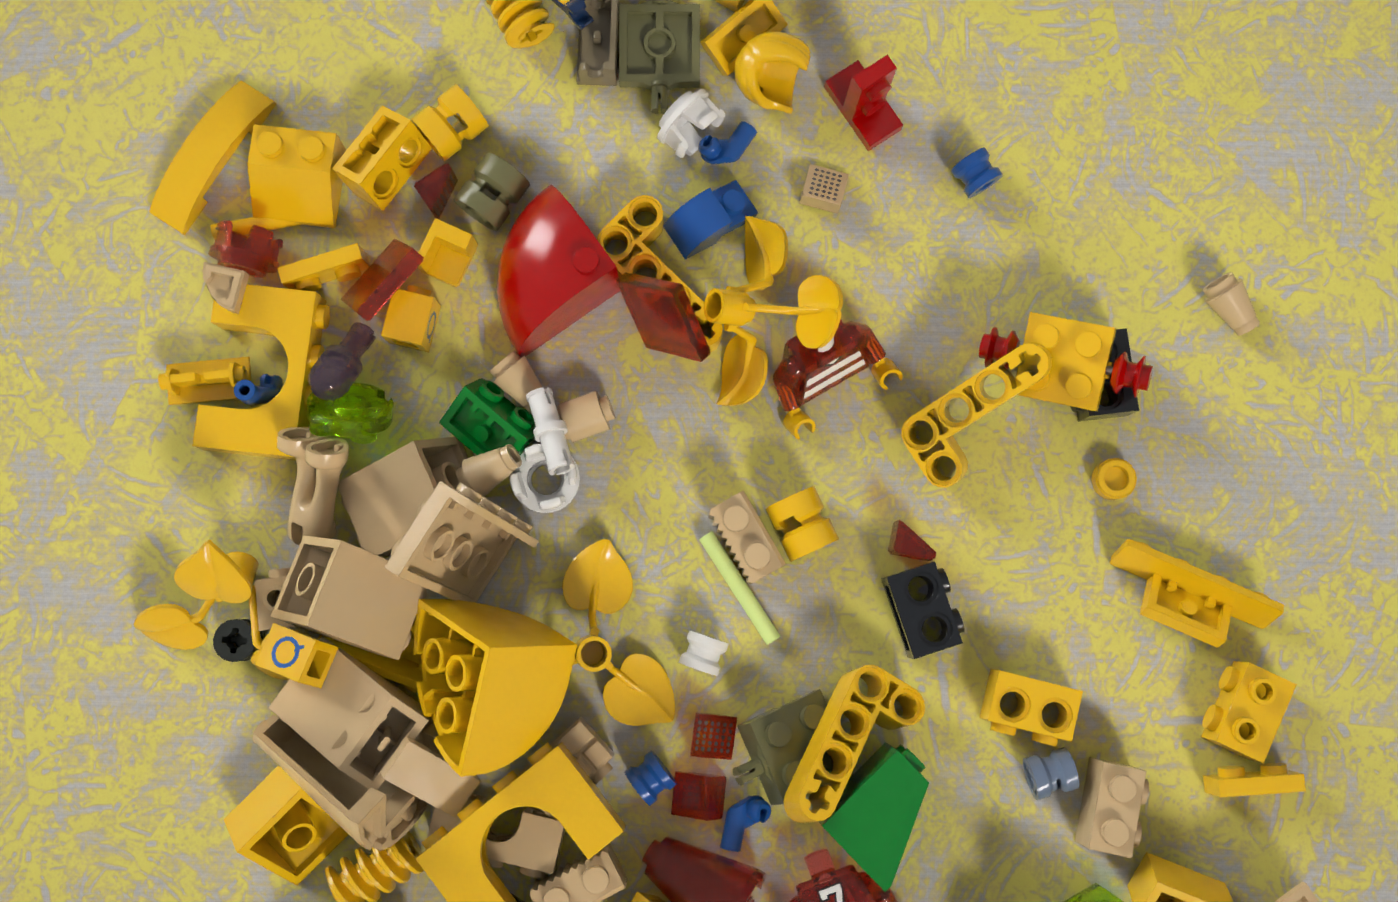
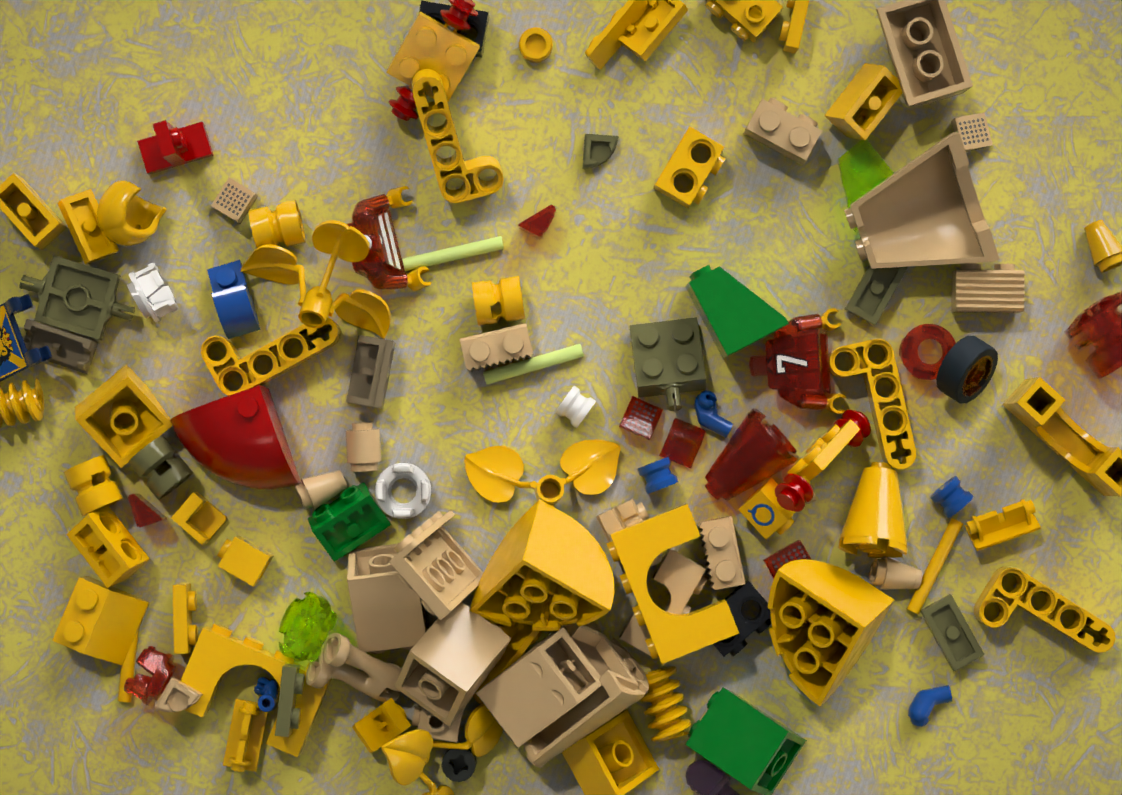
camera: 70 degrees left, 5 degrees up
(206, 153) = (60, 687): yellow slope -> none
(235, 418) = (291, 684): none -> olive plate
(258, 534) = (381, 725): none -> yellow bracket
(296, 655) = (485, 712): yellow brick -> none
(340, 363) = (265, 624): arm -> none
(382, 279) = (207, 573): clear red tile -> none
(428, 777) = (605, 638): tan tile -> none
(488, 469) = (383, 531): tan cone -> none
(538, 131) = (122, 416): none -> yellow slope
(550, 431) = (368, 474): white pin -> none
(664, 316) = (305, 360): clear red tile -> none
(673, 400) = (371, 371): none -> dark tan hinge
(727, 150) = (179, 270): blue arm -> none
(812, 246) = (277, 226): none -> yellow wheel
(840, 455) = (453, 253): none -> yellowish green bar
(844, 747) = (677, 320): yellow beam -> none
(911, 614) = (592, 237): black brick -> none
(976, 172) = (259, 75): blue wheel -> none
(1016, 589) = (598, 149): none -> olive tile
(1051, 773) = (745, 168): sand blue wheel -> none

